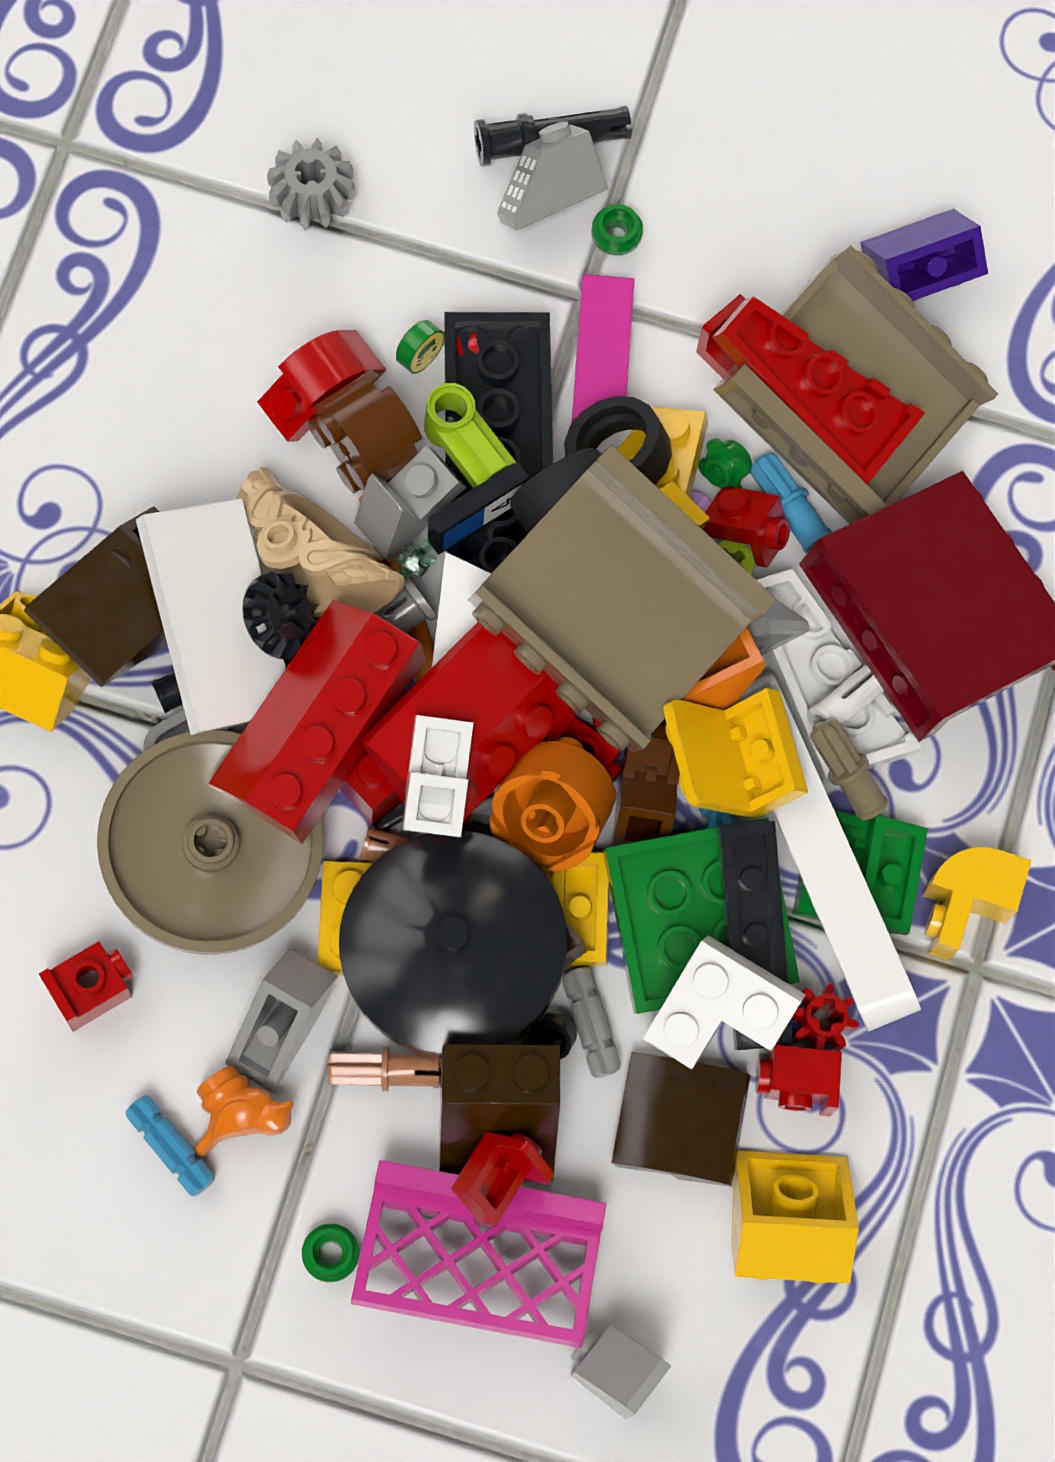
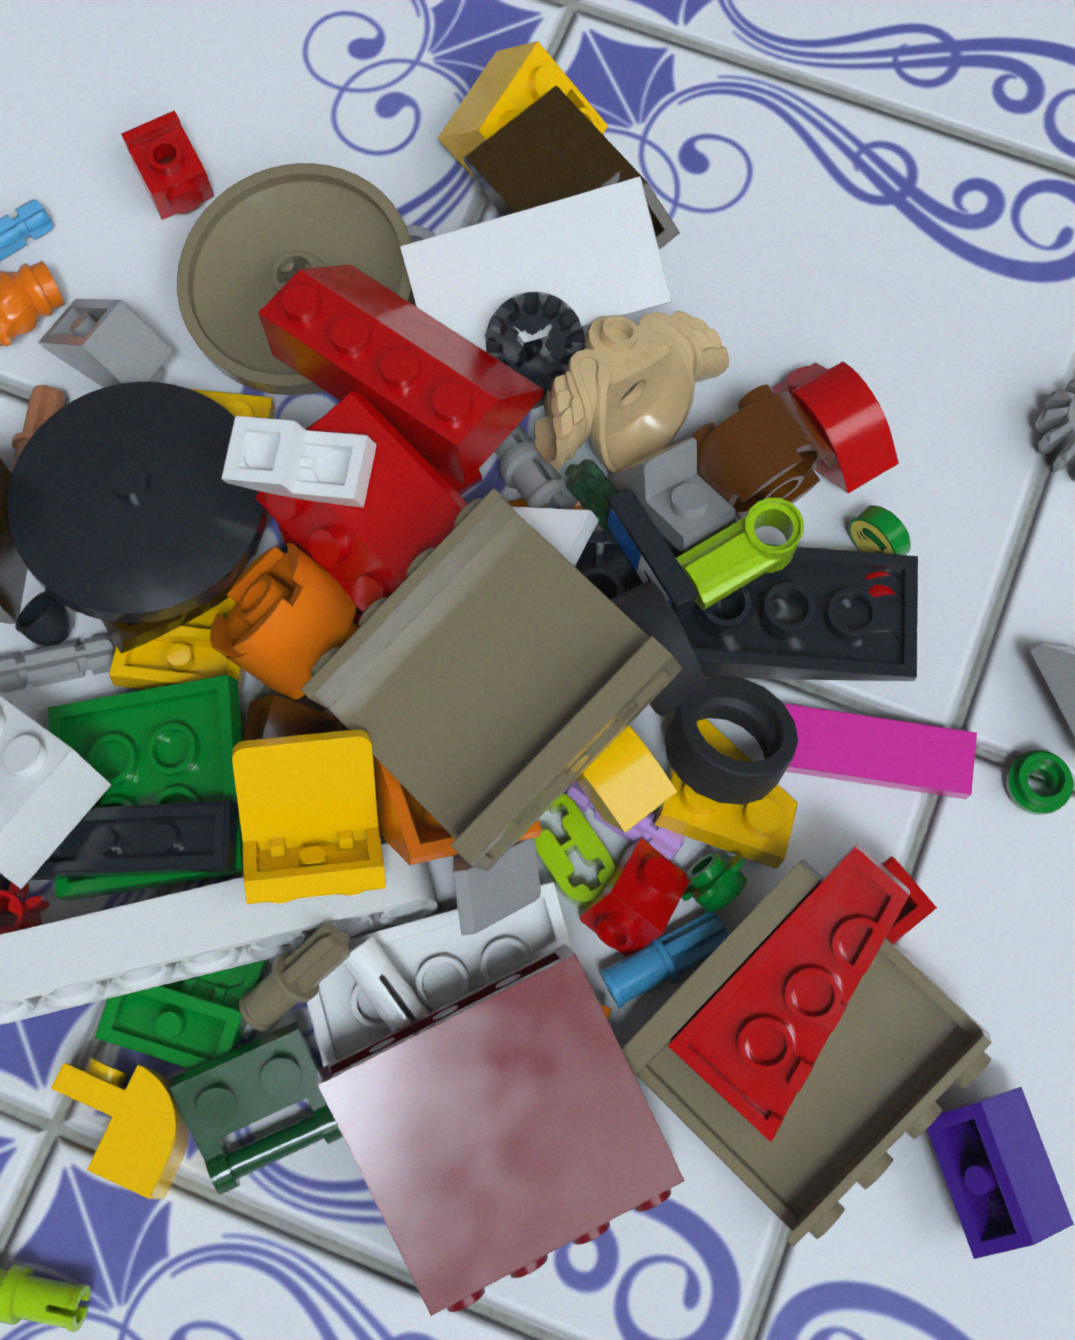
camera: 105 degrees right, 0 degrees up
(933, 803) = (247, 1088): none -> dark green plate

